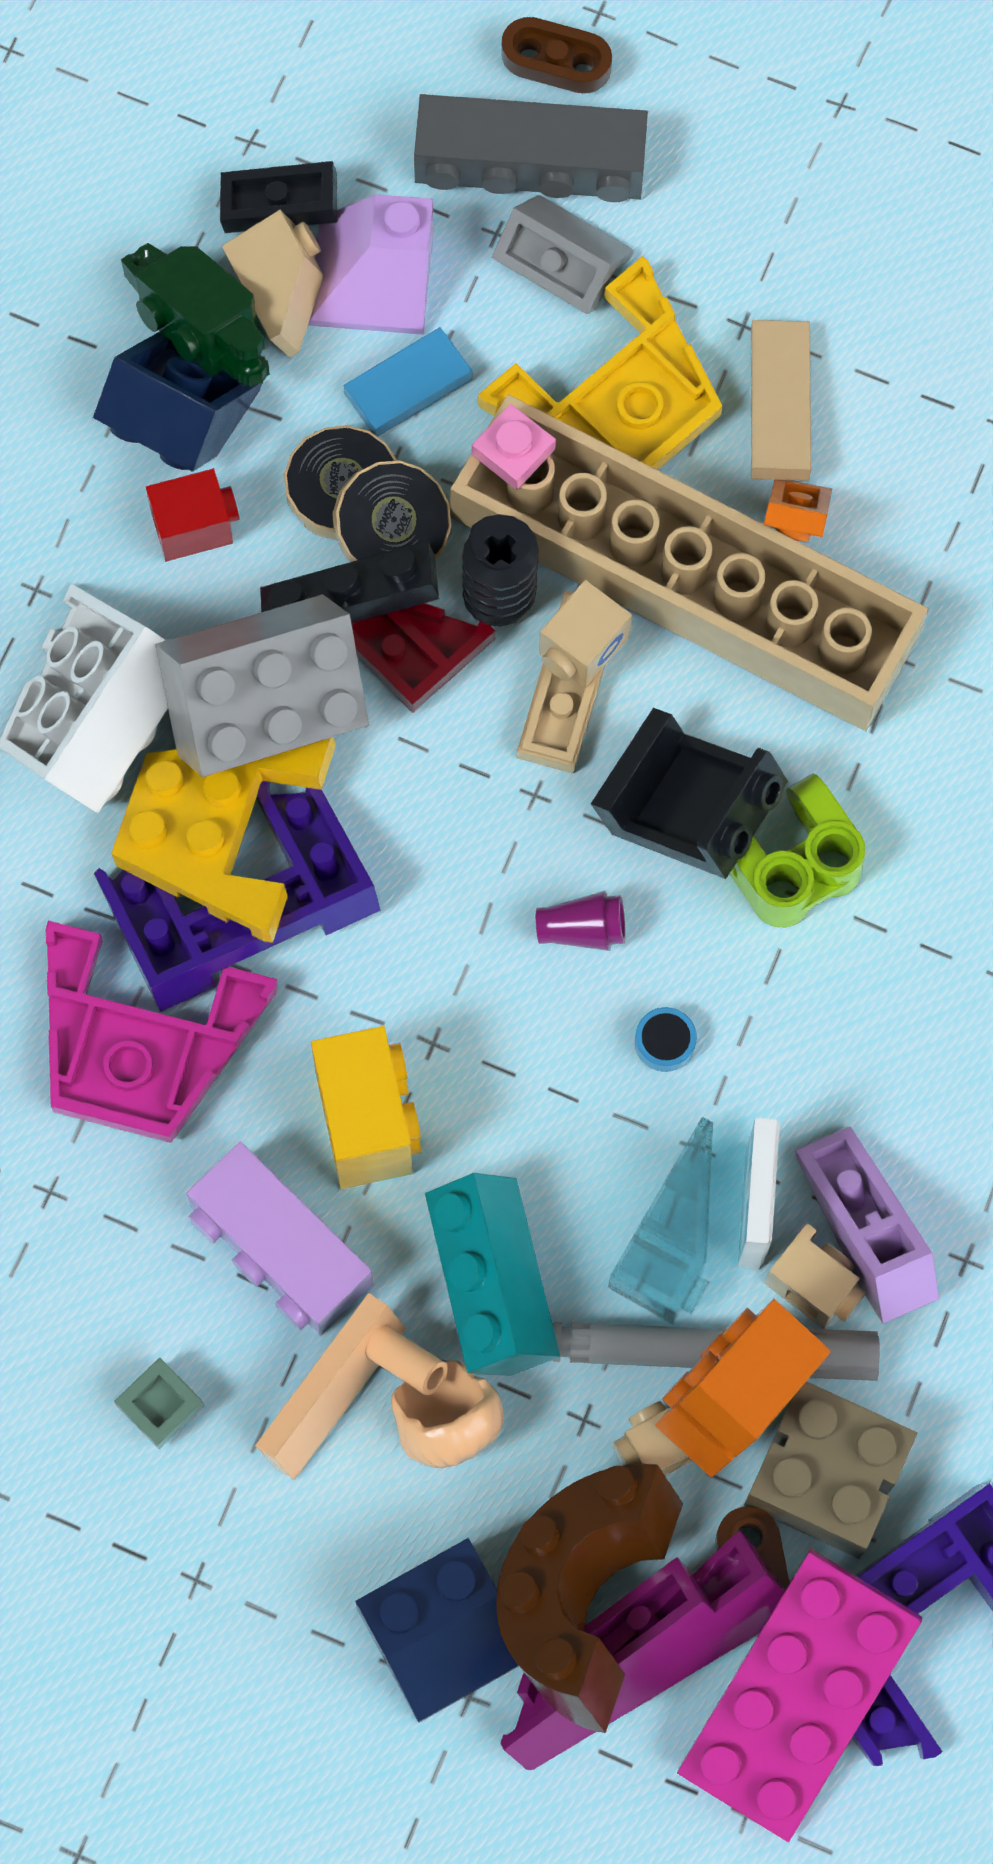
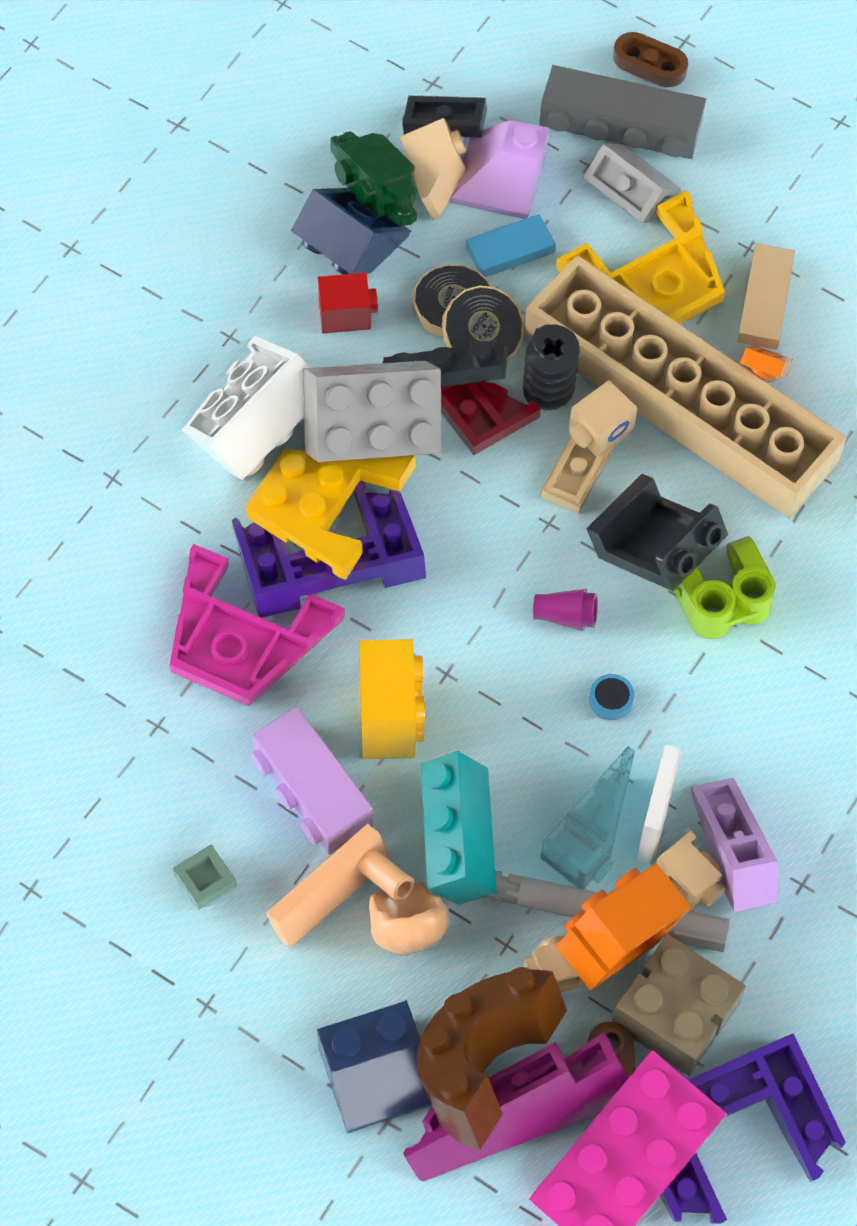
camera: 10 degrees right, 10 degrees down
(513, 446) = (574, 287): bright pink plate -> none

